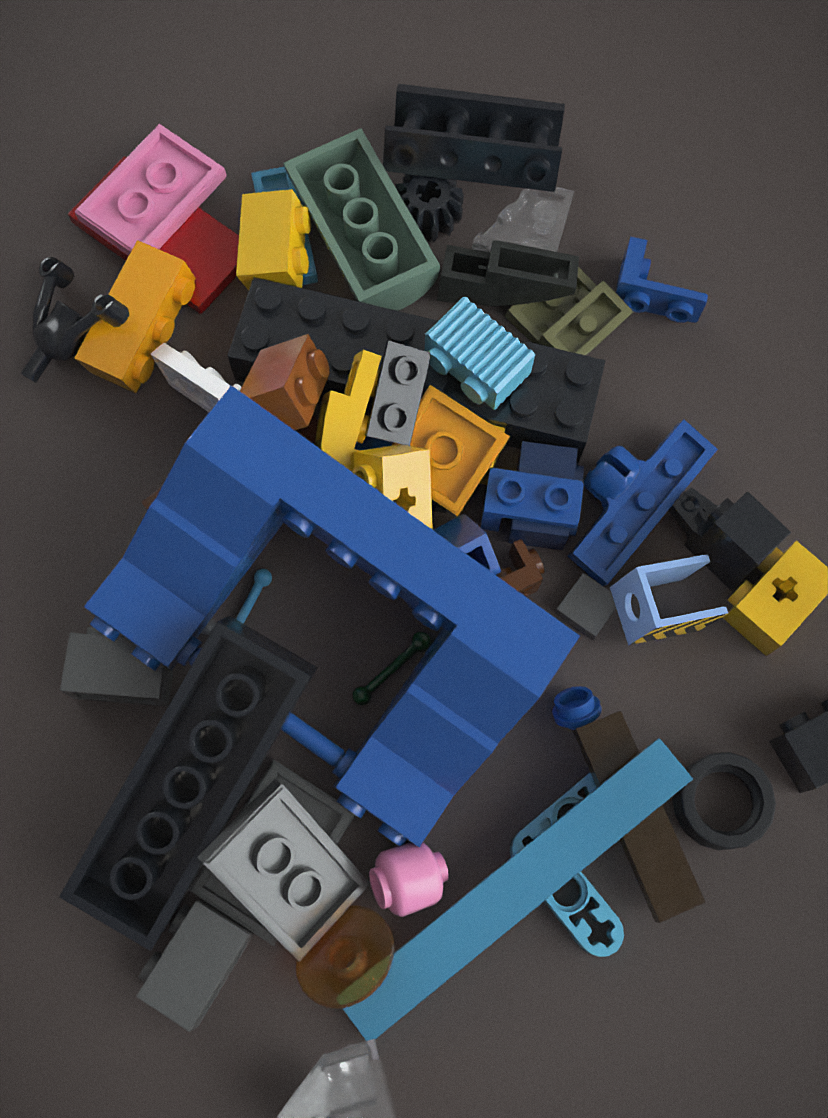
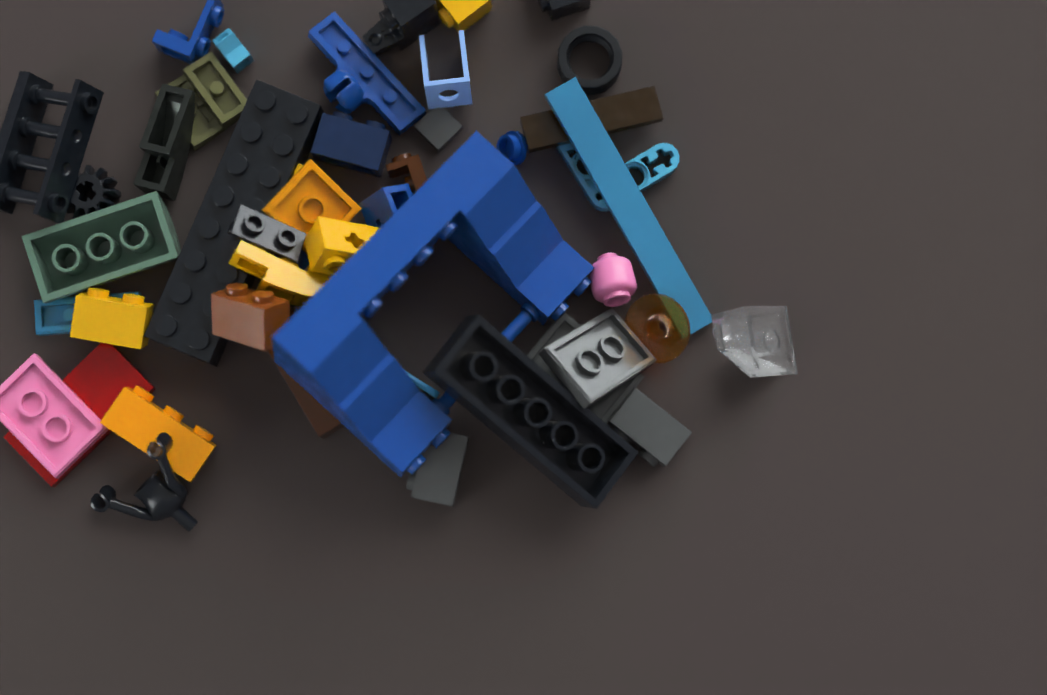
camera: 80 degrees left, 10 degrees up
(189, 378) = (230, 384): white plate -> none
(419, 643) = (447, 252): dark green hinge -> none
(478, 354) = (244, 171): medium azure brick -> none
(530, 499) = (357, 154): blue bracket -> none
(531, 221) = (123, 119): clear wing -> none
(639, 338) = (233, 50): none -> medium azure piece

